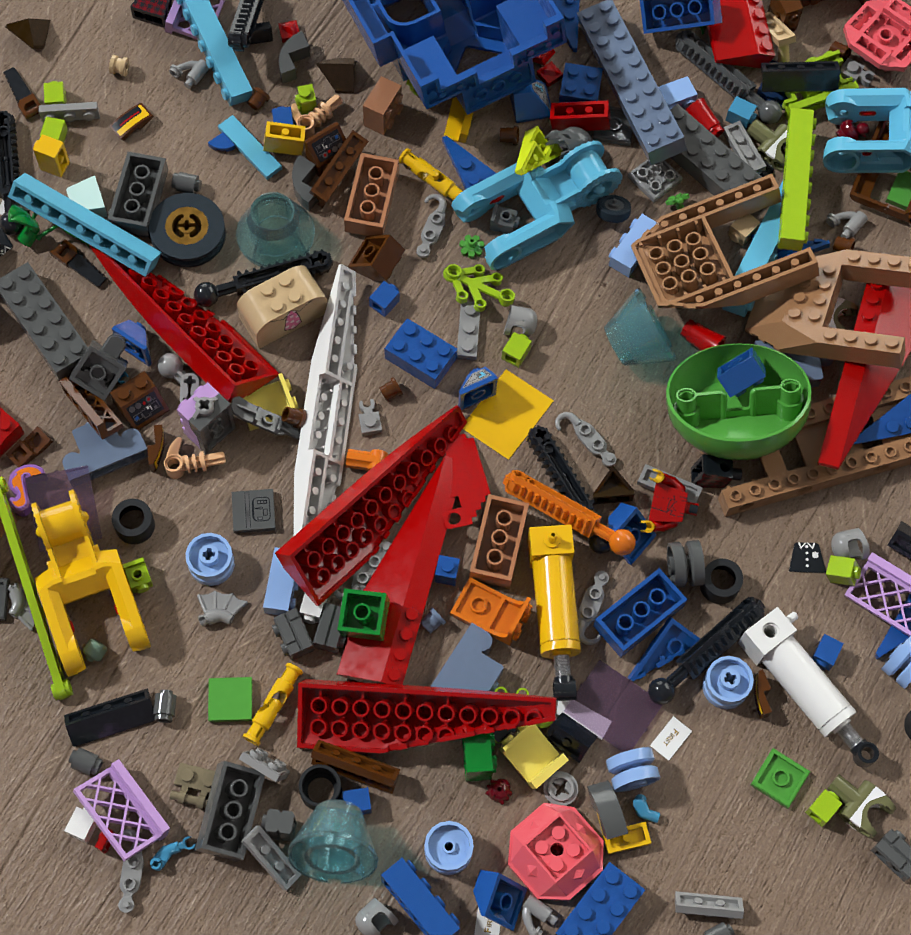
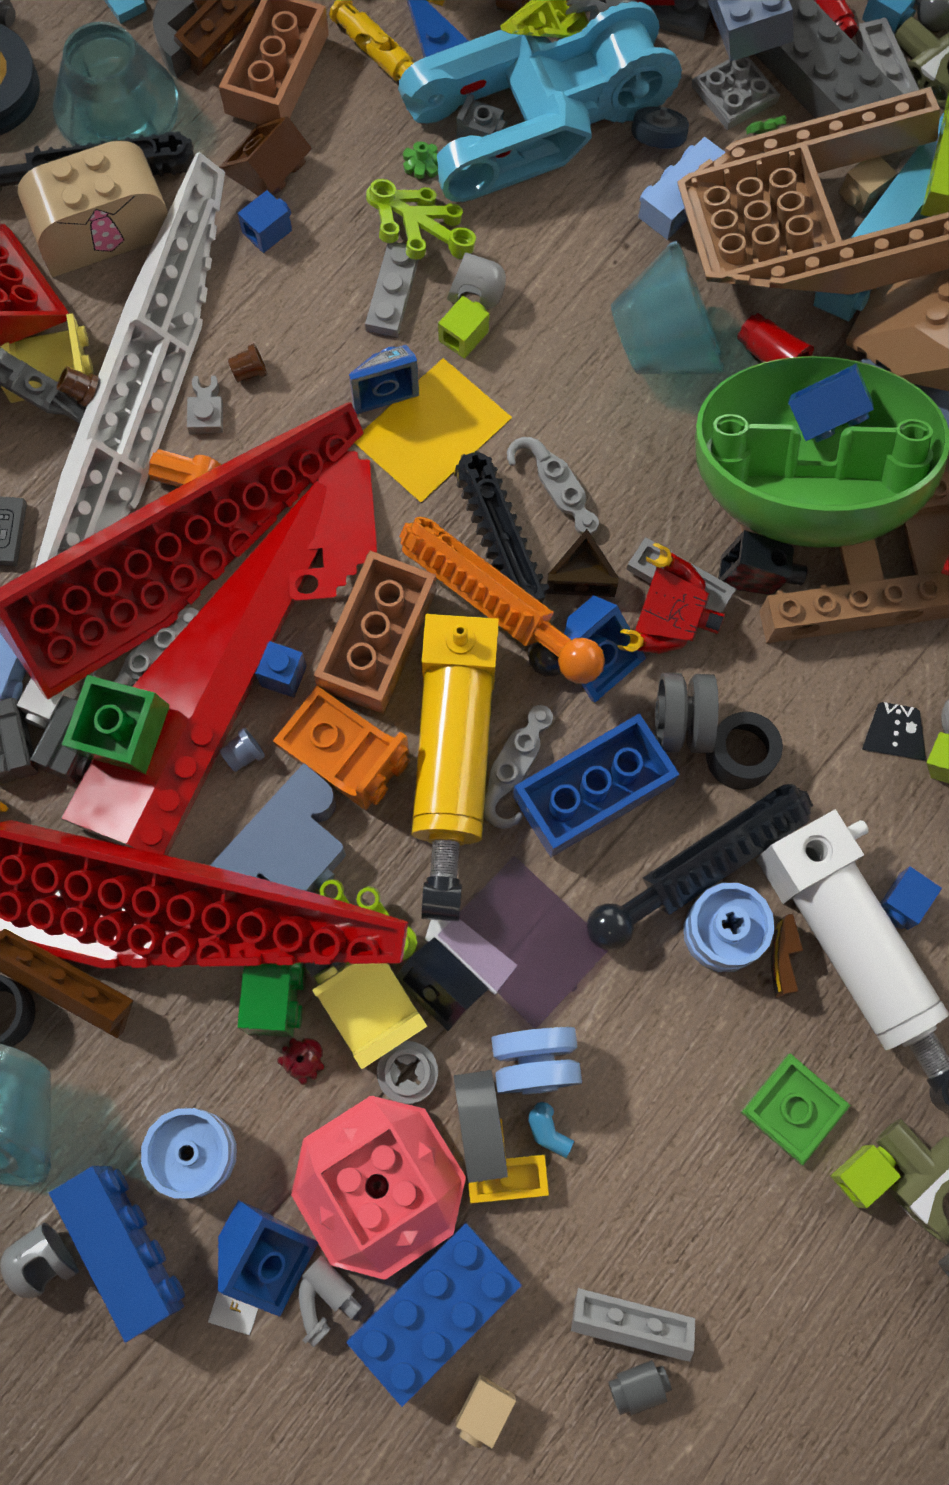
camera: 10 degrees right, 5 degrees up
(359, 797) = (51, 1044): blue brick -> none
(420, 353) = (306, 312): blue brick -> none
(433, 226) = (365, 122): light grey piece -> none
(669, 642) = (636, 844): blue wing -> none
(671, 738) = (614, 1009): white sticker -> none

